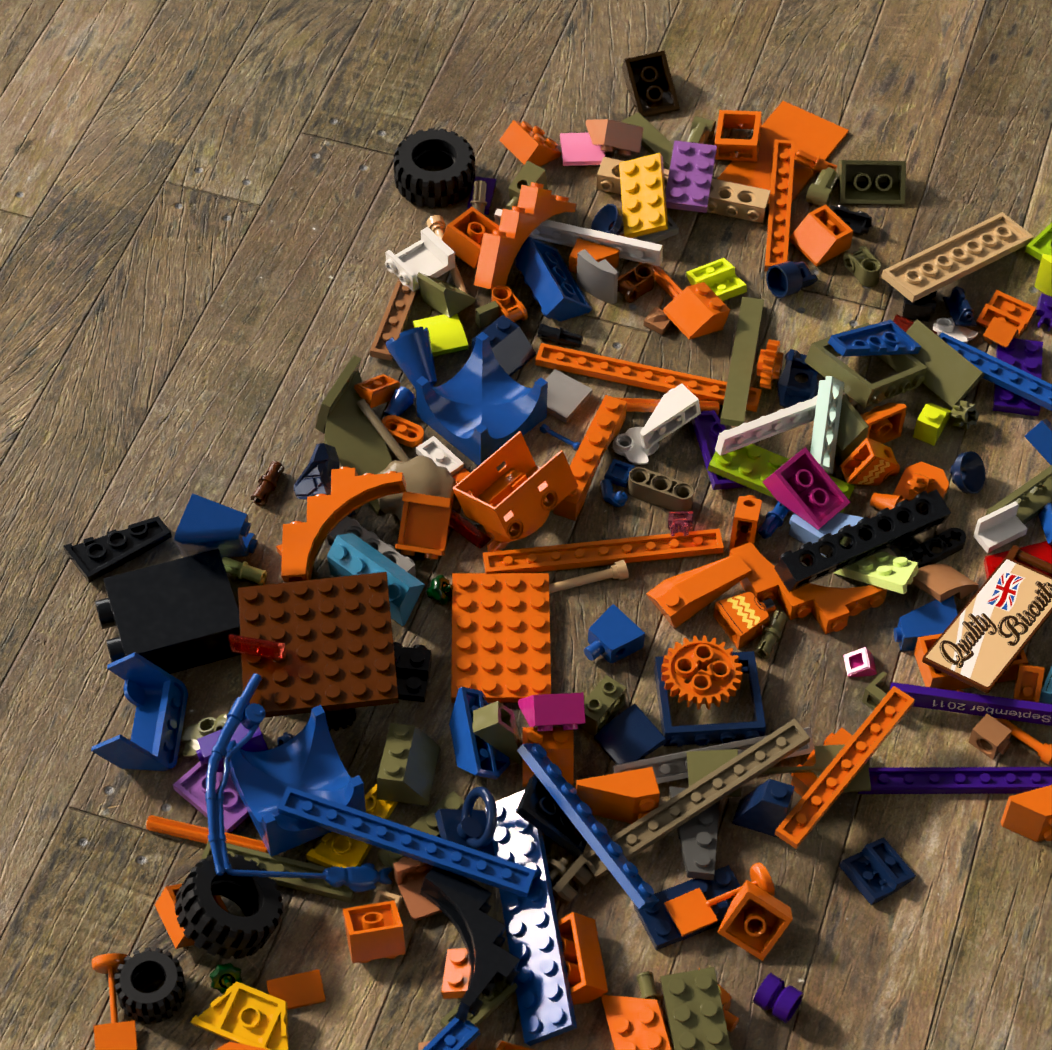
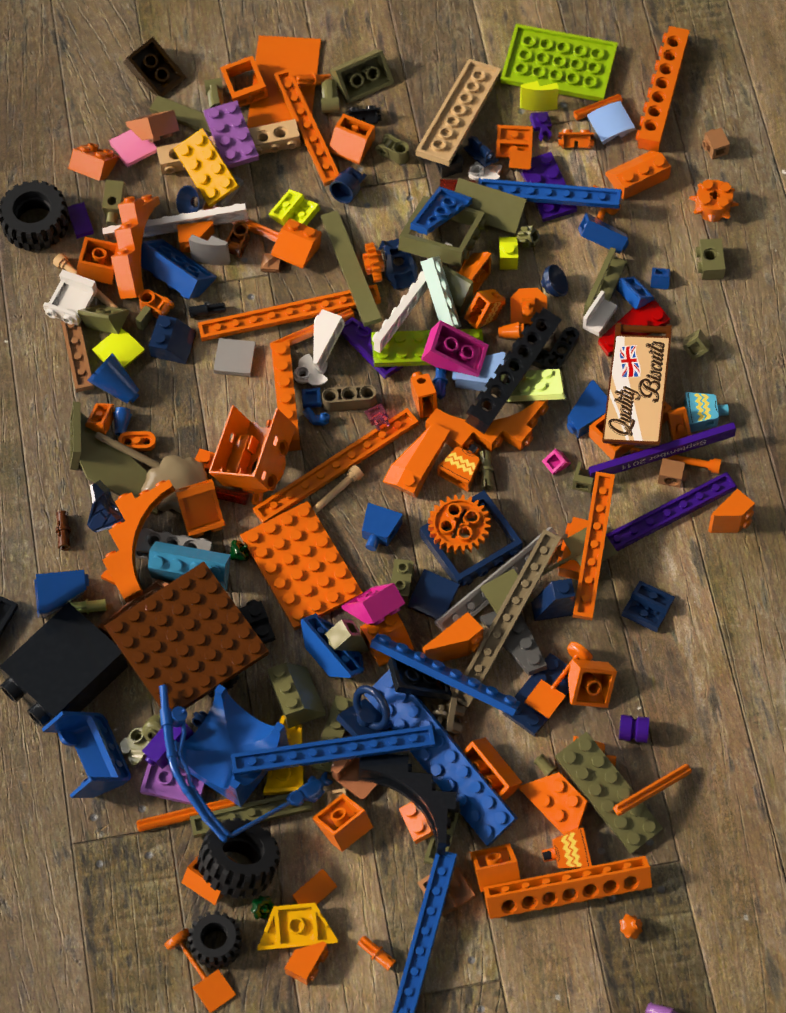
camera: 25 degrees left, 10 degrees up
(256, 646) = (148, 663): clear red slope -> none
(440, 455) = (174, 446): white plate -> none
(479, 196) = (83, 226): dark tan axle -> none
(481, 405) = (184, 394): blue piece -> none
(545, 429) = (269, 391): blue hinge -> none
(943, 582) = (582, 373): medium nougat slope -> none

